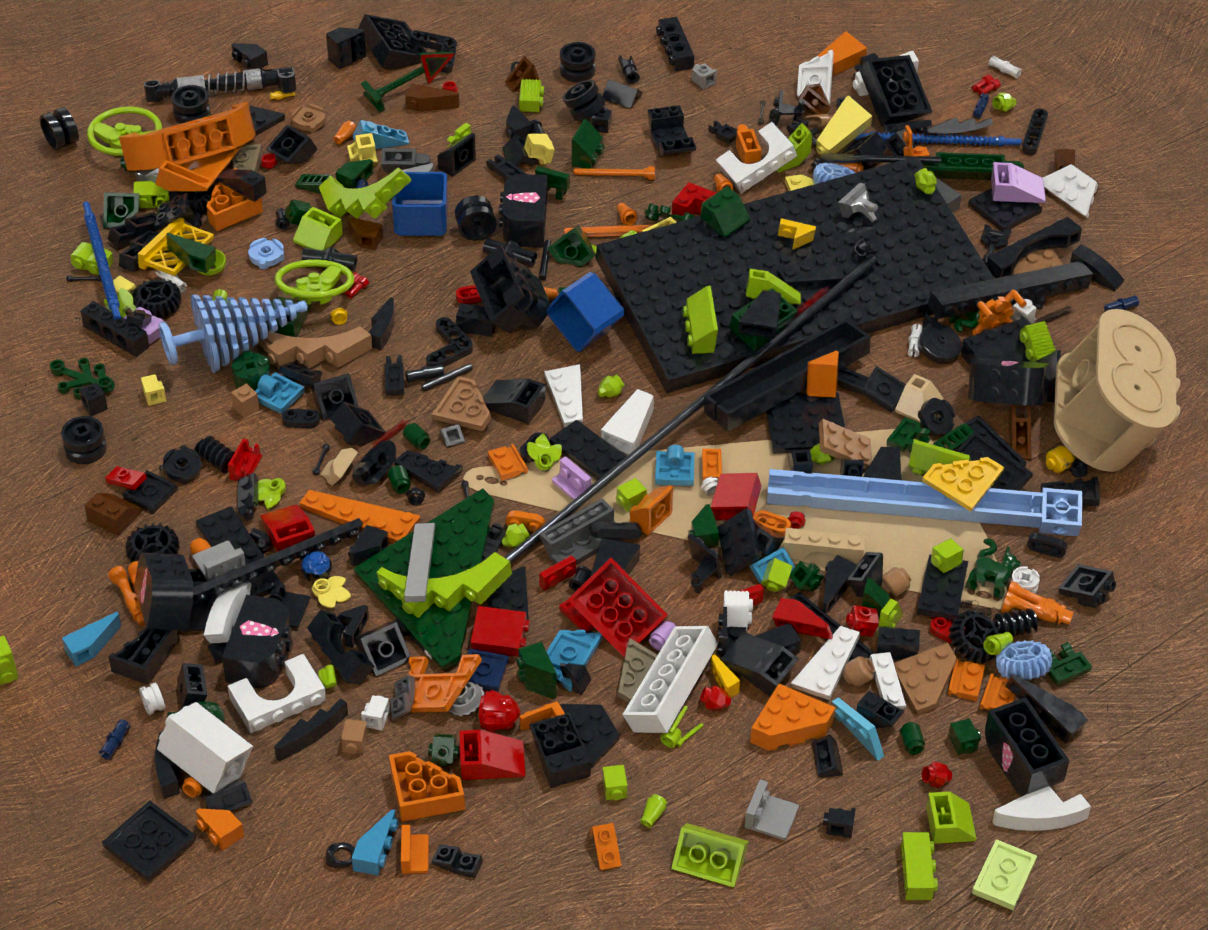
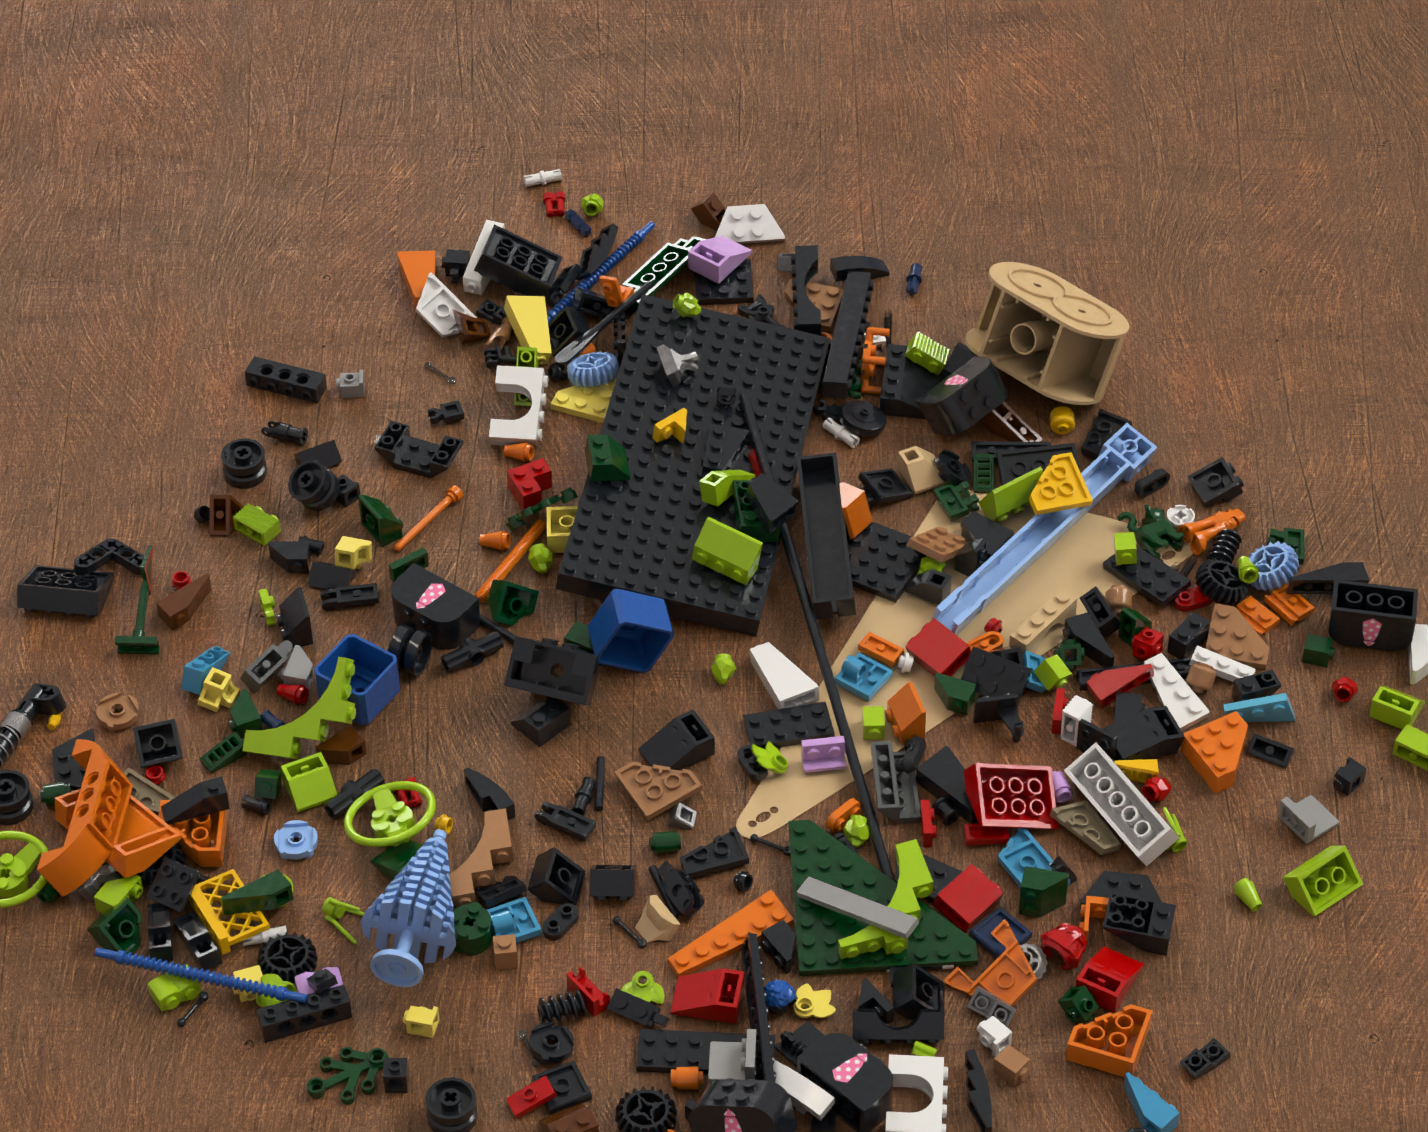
camera: 55 degrees left, 0 degrees up
(263, 539) = (702, 1024): black arm -> none
(344, 132) = (170, 692): orange cone -> none
(345, 46) = (43, 627): black slope -> none
(391, 431) = (642, 861): red piece -> none
(399, 479) = (712, 882): dark green brick -> none
(414, 851) = (1172, 1086): orange panel -> none
(454, 344) = (565, 756): black beam -> none
(468, 295) = (502, 710): red plate -> none
(507, 462) = (753, 792): orange plate -> none
(566, 392) = (682, 698): white wing -> none
(606, 846) = (1263, 941): orange bracket -> none
(614, 782) = (1200, 904): lime brick -> none
(747, 145) = (488, 404): orange brick -> none
(784, 109) = (467, 359): black plate -> none
(890, 615) = (1162, 622): lime wing -> none
(912, 738) = (1294, 683): dark green brick -> none
(1034, 131) = (649, 206): black beam -> none
(1079, 468) = (1081, 415): black plate -> none

